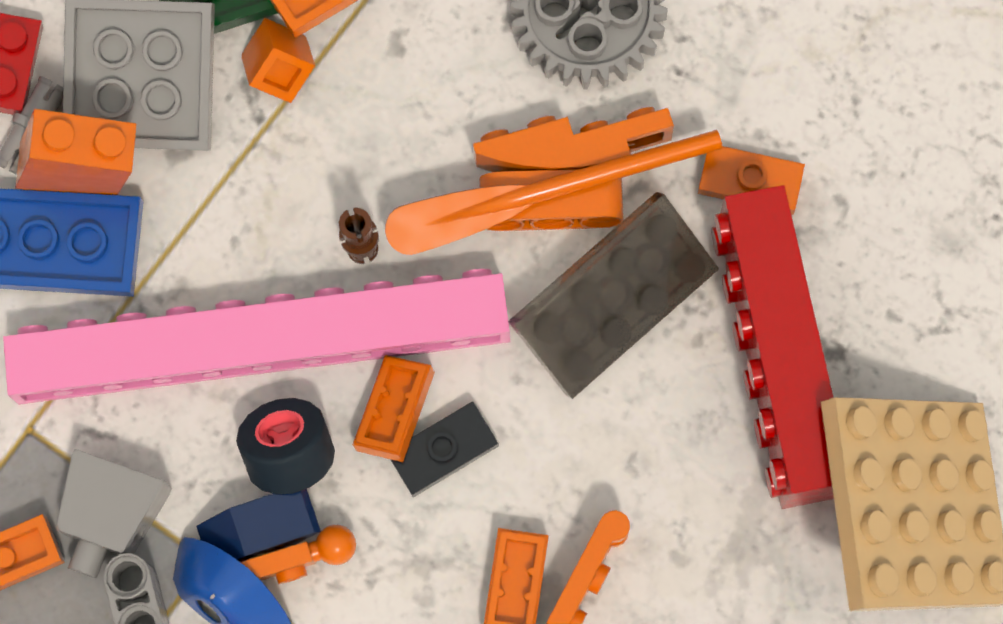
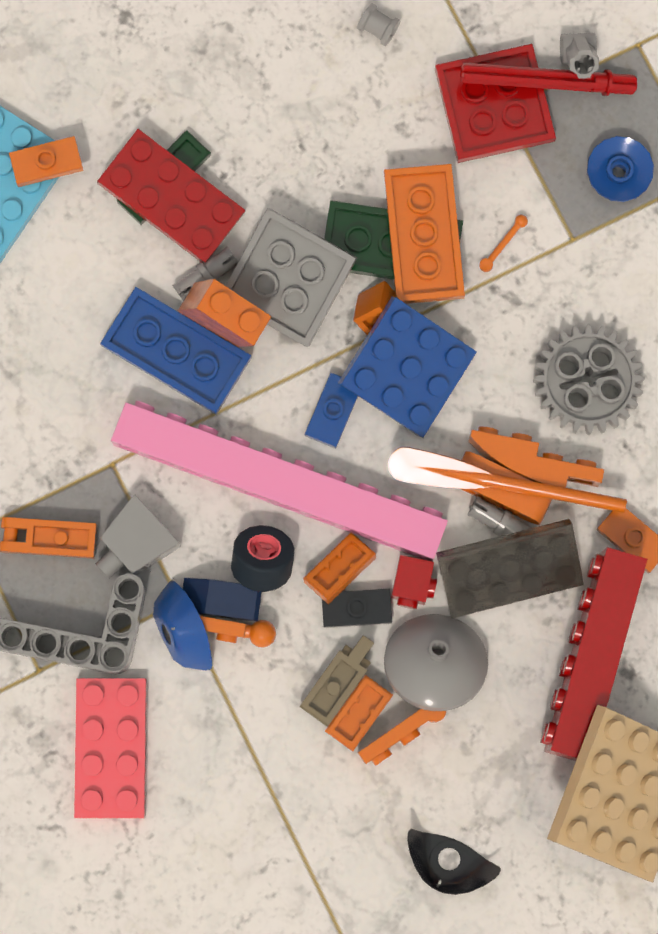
camera: 20 degrees right, 5 degrees up
(283, 214) = (331, 413): none -> blue plate
(348, 108) = (407, 367): none -> blue plate
(355, 225) = (379, 448): reddish brown pin -> none
(467, 556) = (338, 682): none -> dark tan hinge
(499, 376) = (413, 582): none -> red brick
(560, 242) = (499, 520): none -> light grey pin
(587, 485) = (432, 679): none -> light grey dish

